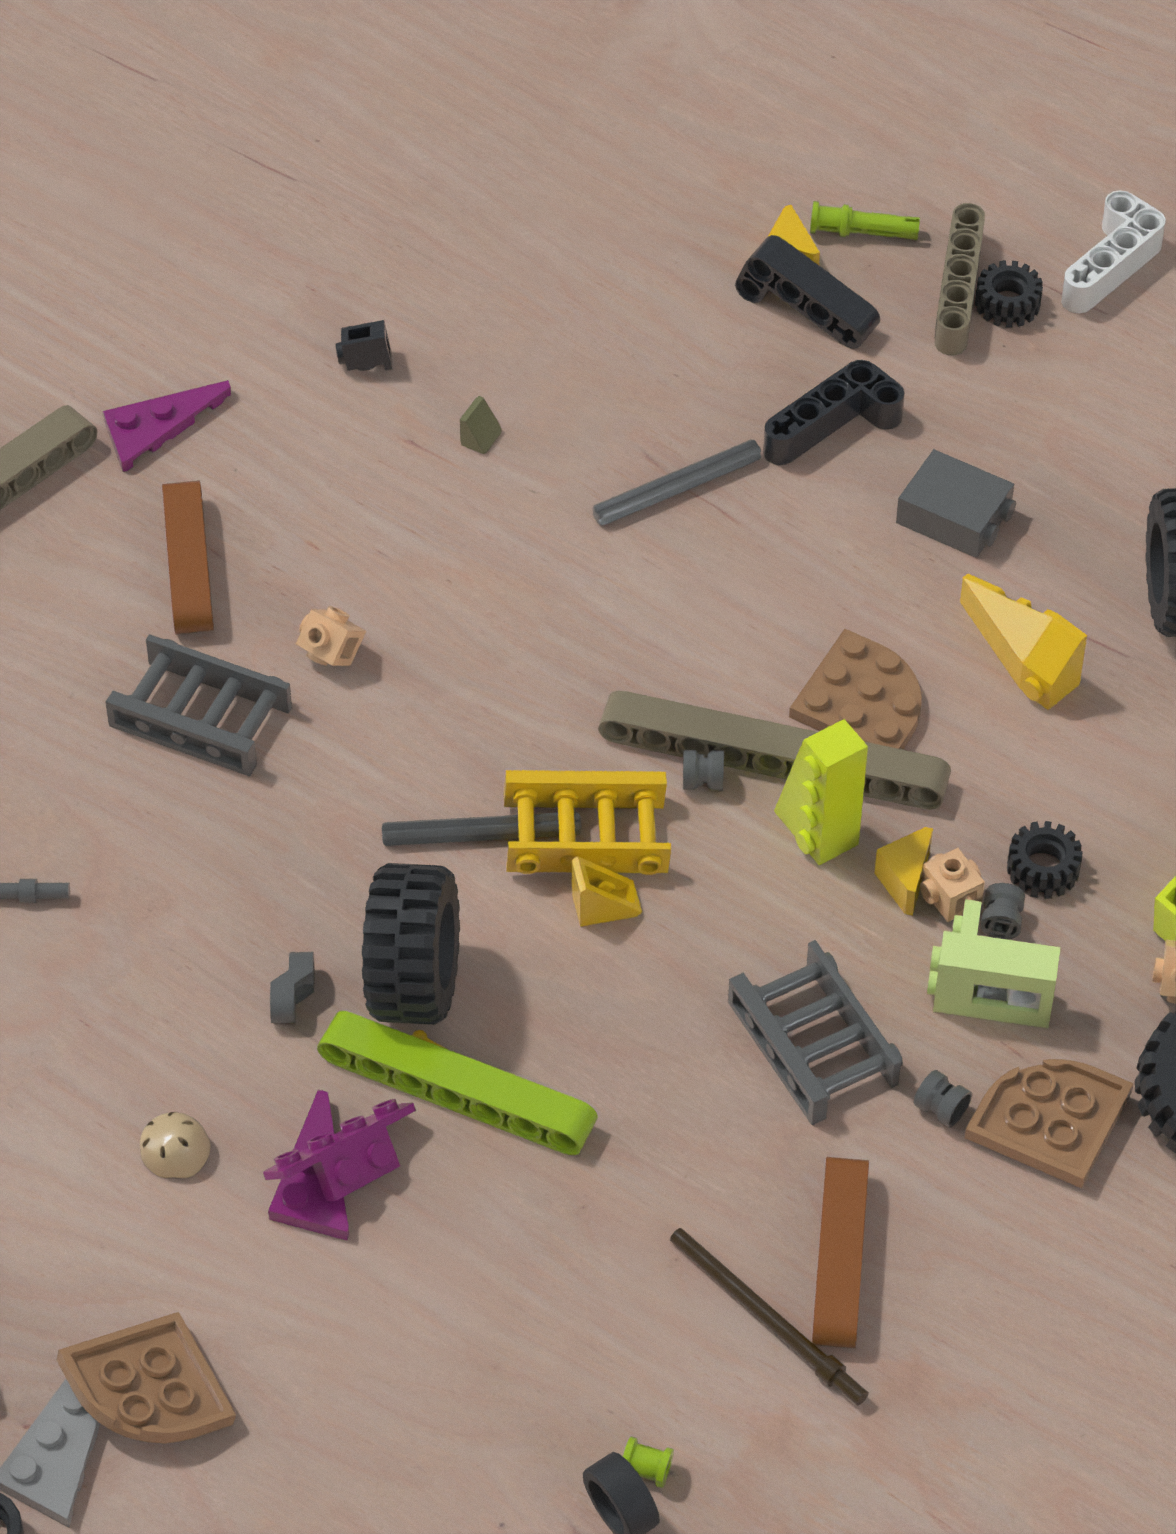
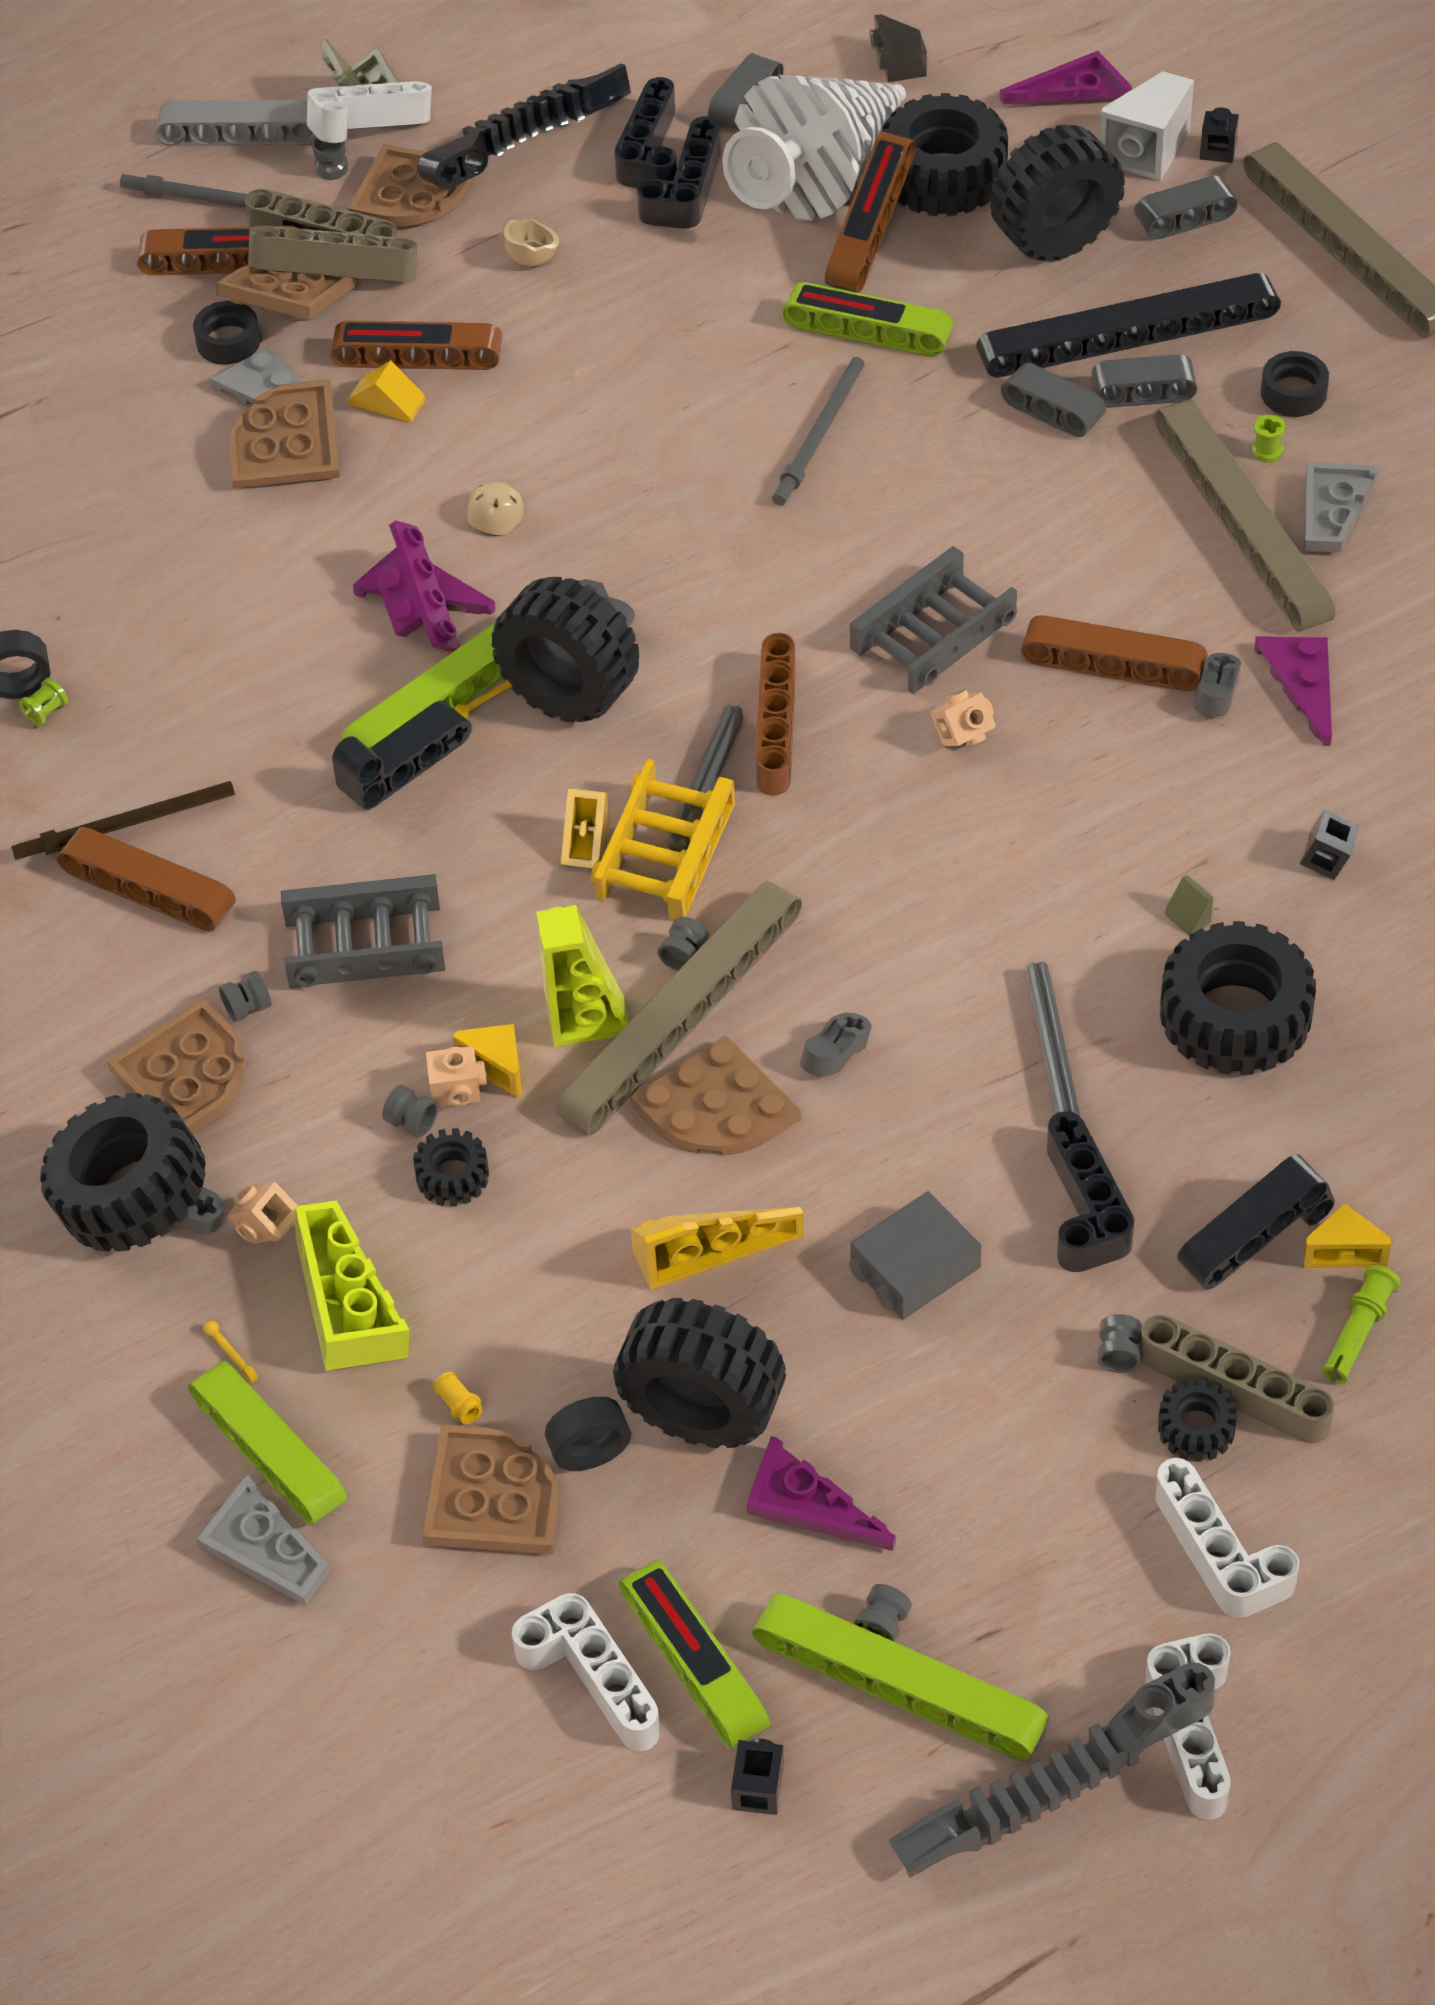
camera: 115 degrees right, 0 degrees up
(28, 1326) = (388, 393): none -> yellow slope
(213, 470) = (1217, 684): none -> dark grey piece
(378, 791) = (775, 714): none -> dark orange beam
(575, 390) = (1240, 958): none -> black tyre
(617, 1097) = (380, 771): none -> black beam
(762, 626) = (835, 1044): none -> dark grey piece
(967, 353) = (1119, 1346): none -> dark grey wheel
(992, 975) = (333, 1057): yellowish green brick -> none

